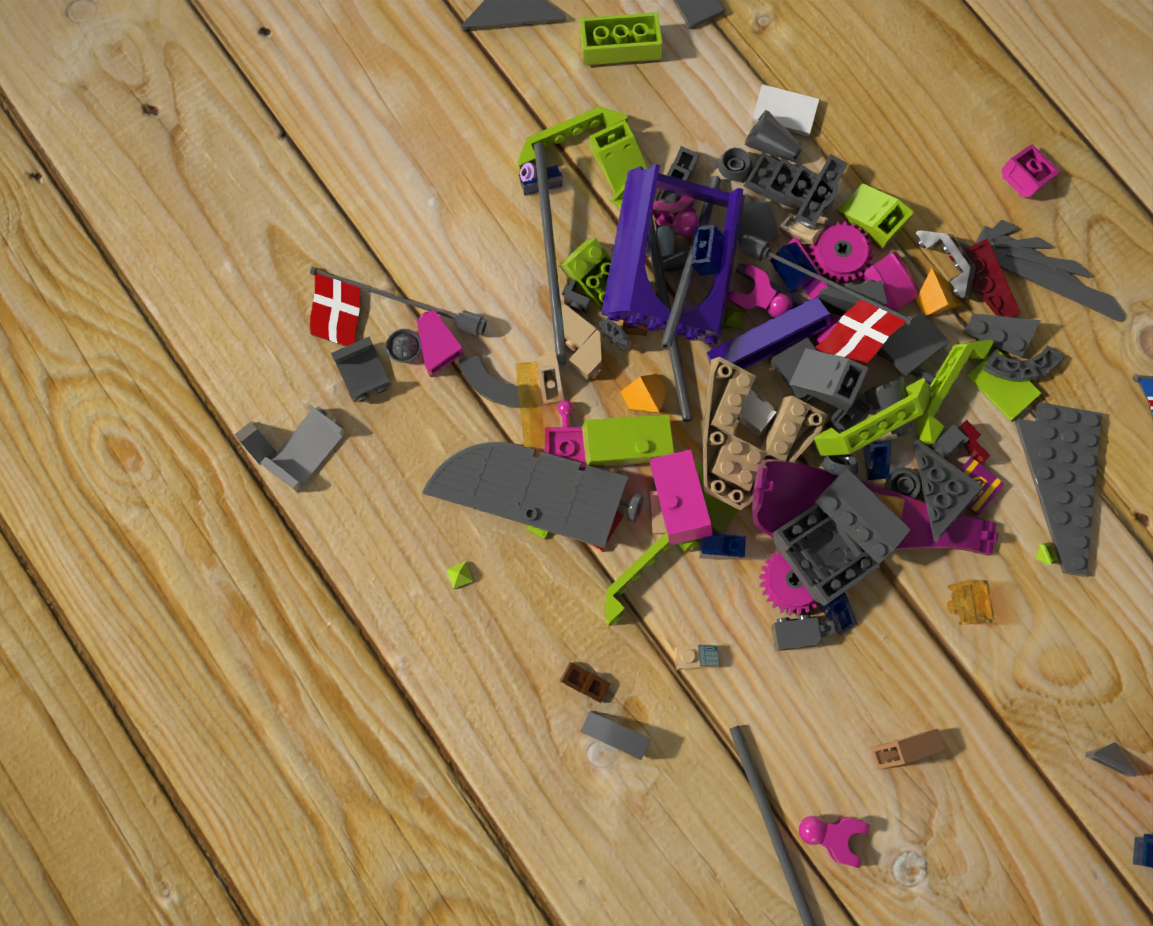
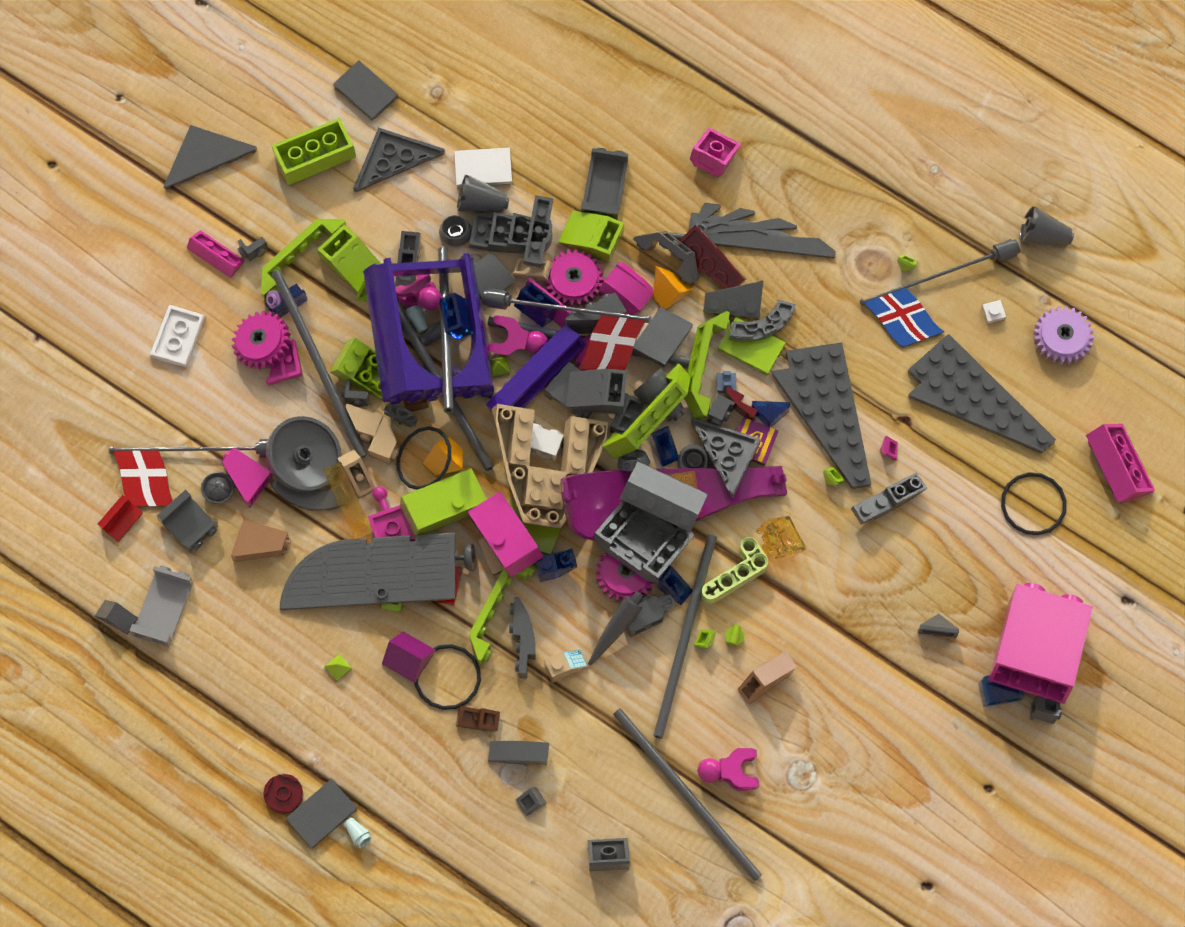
camera: 20 degrees left, 5 degrees down
(295, 343) = (120, 518): none -> red panel
(356, 689) = (283, 793): none -> dark red tile
(387, 726) = (321, 813): none -> dark grey tile
(417, 762) = (358, 834): none -> light aqua cone
(420, 179) = (177, 336): none -> white tile
(425, 416) = (259, 542): none -> medium nougat slope
(487, 109) = (214, 253): none -> dark pink slope
(499, 337) = (300, 452): none -> dark grey dish
(501, 210) = (261, 340): none -> dark pink gear
(517, 242) = (288, 367): none -> dark pink wing
(528, 117) = (254, 250): none -> dark grey bracket
(535, 589) = (407, 656): none -> magenta slope
(574, 659) = (471, 695): none -> black piece
(610, 792) = (531, 801): none -> dark grey slope
(653, 380) = (404, 444): none -> black piece
(663, 603) = (523, 631): none -> dark grey slope
(673, 882) = (608, 854): none -> dark grey slope
(697, 69) = (393, 155): none -> dark grey tile
(767, 635) = (618, 624): none -> dark grey piece
(832, 672) = (684, 637): none -> dark grey piece
(853, 682) = (705, 639): none -> lime slope
(886, 689) = (734, 635): none -> lime plate
(905, 164) = (605, 182): none -> dark grey panel
(906, 623) = (731, 575): none -> yellowish green beam
(964, 412) = (726, 380): none -> sand blue tile
(1002, 461) = (770, 412): none -> clear blue slope
(1101, 599) = (889, 499): none -> dark grey slope
(1117, 543) = (889, 448): none -> dark pink slope

